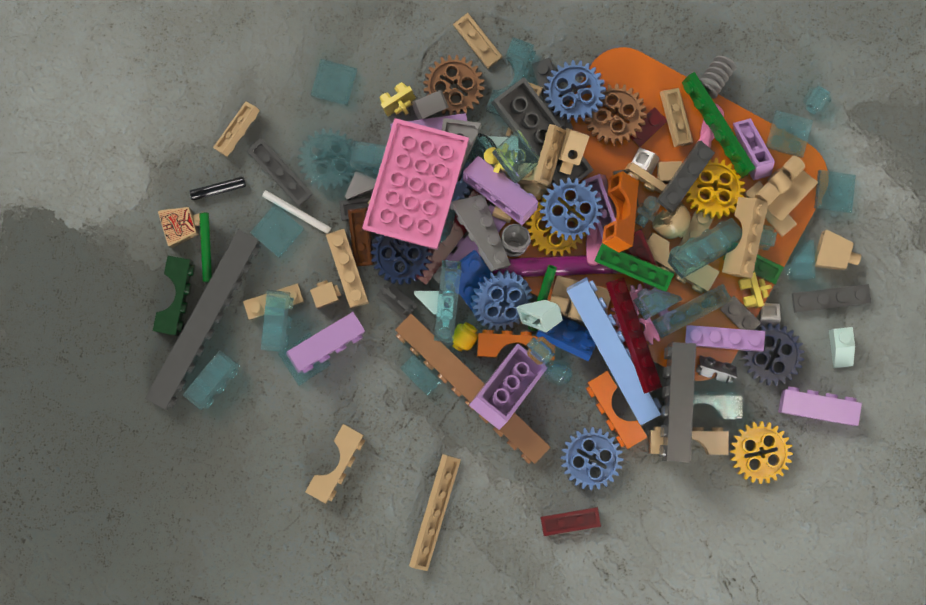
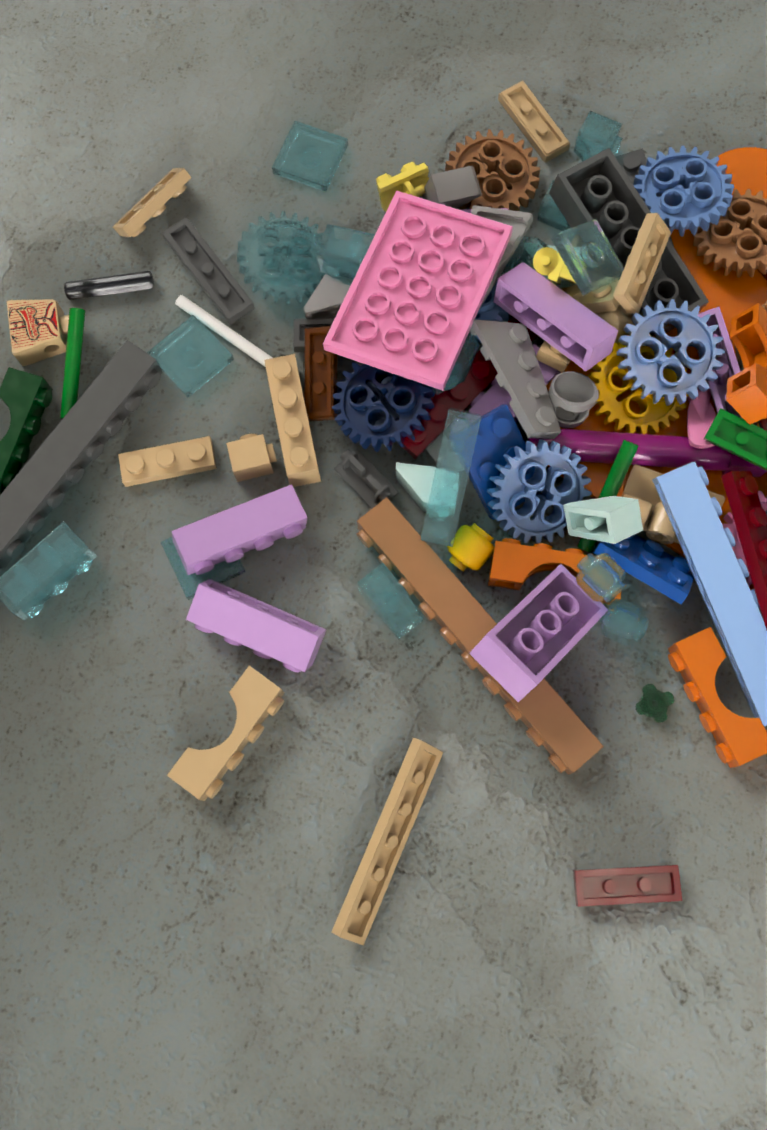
camera: 10 degrees right, 10 degrees down
(276, 321) = (164, 485): clear light blue brick -> none
(343, 399) = (255, 625): none -> lavender brick
(572, 141) = (683, 253): tan torso -> none
(581, 422) = (645, 706): none -> clear green plate
(582, 473) = (688, 751): medium blue gear -> none

